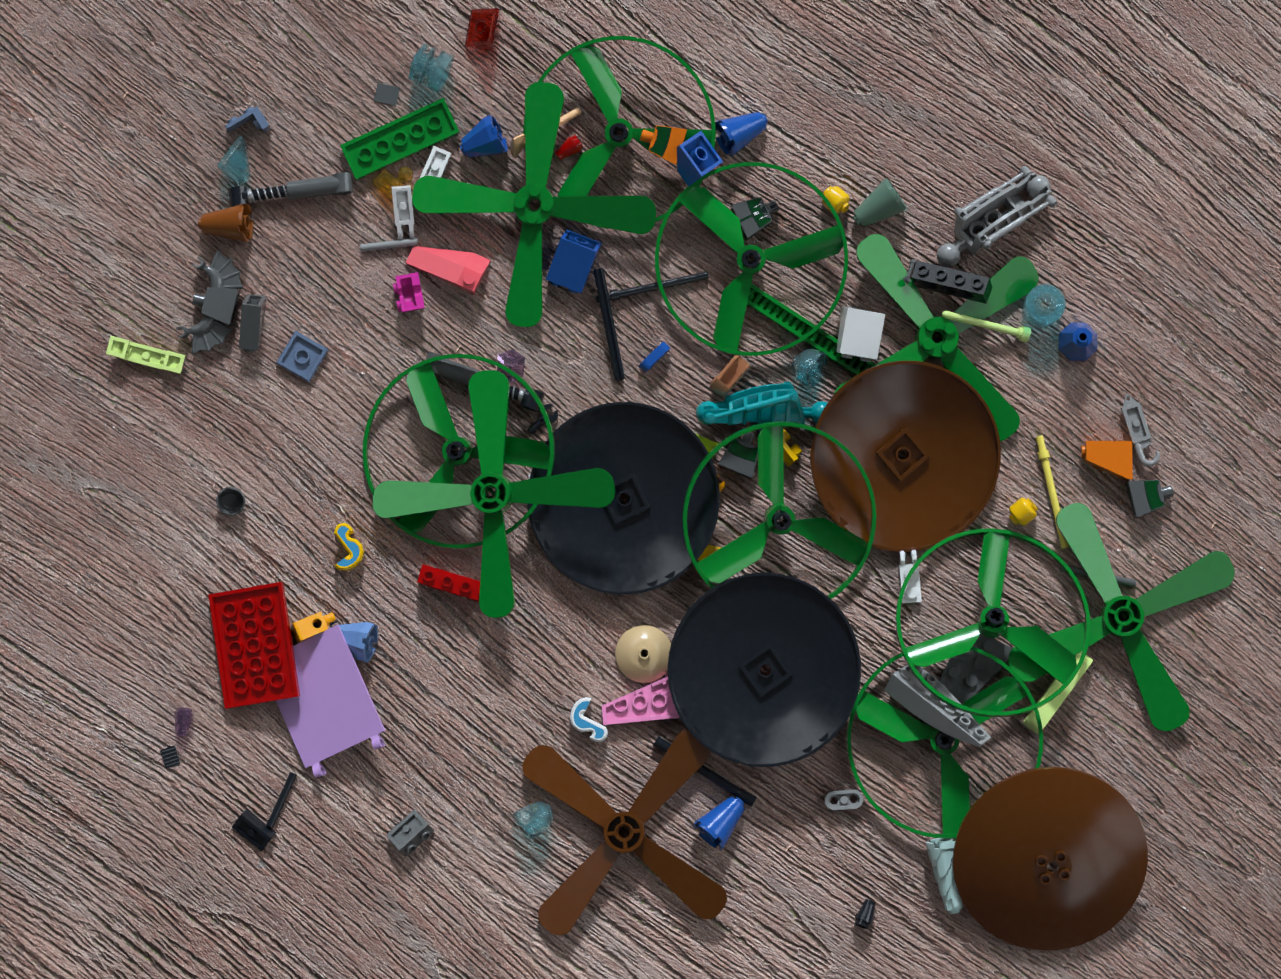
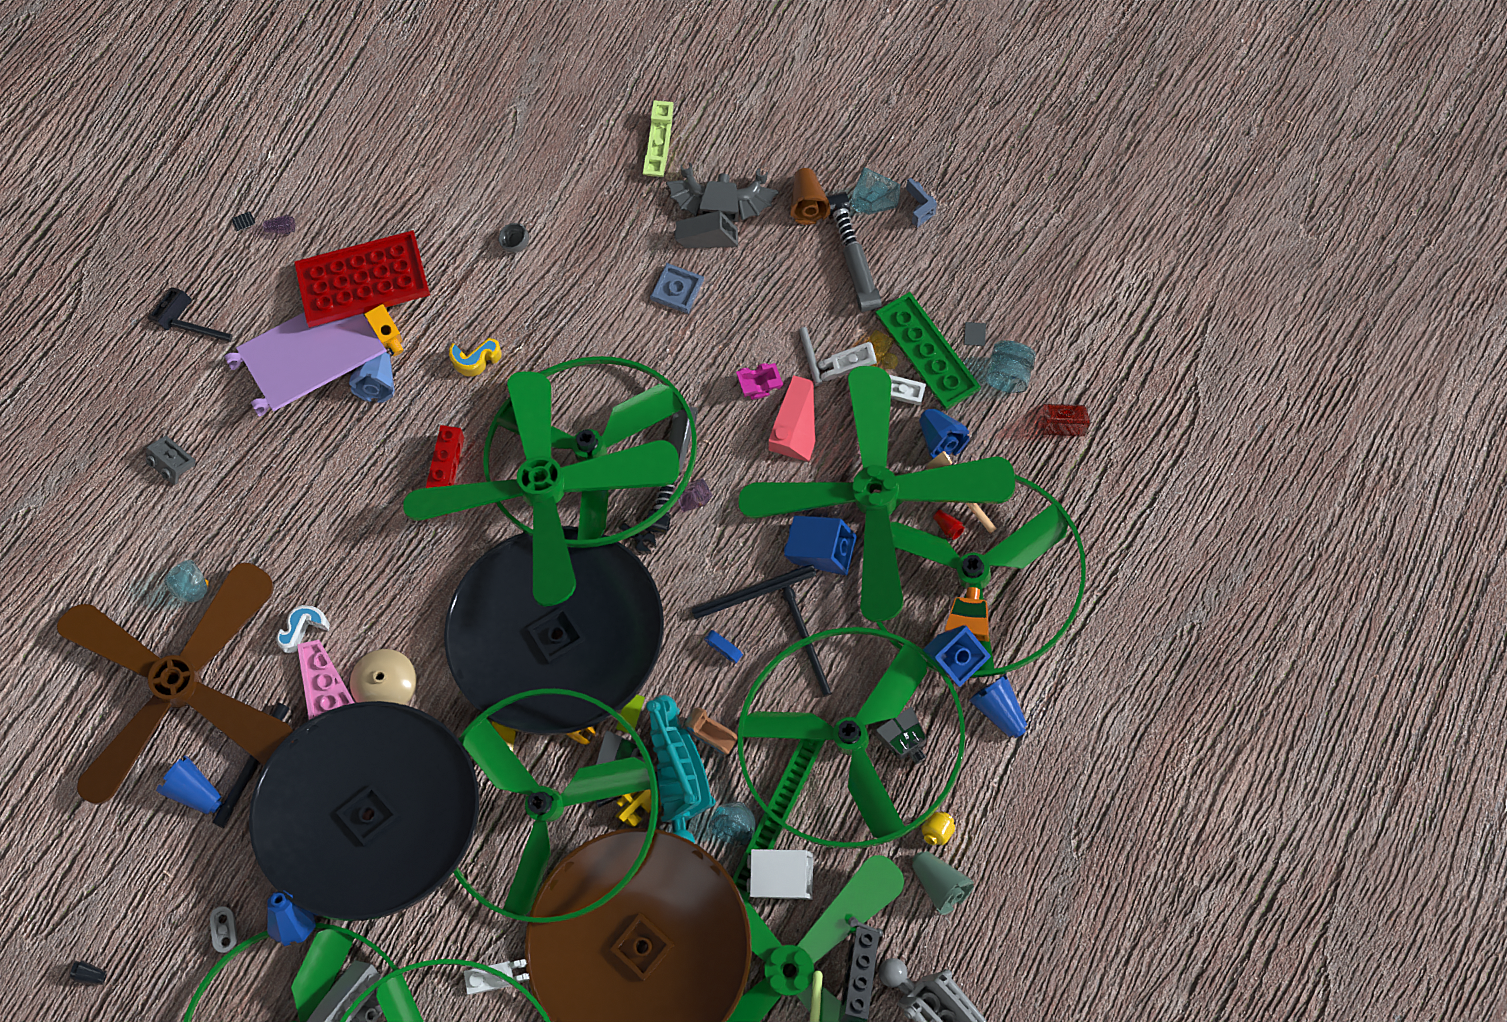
camera: 90 degrees right, 15 degrees down
(847, 743) = (287, 921): none -> blue cone

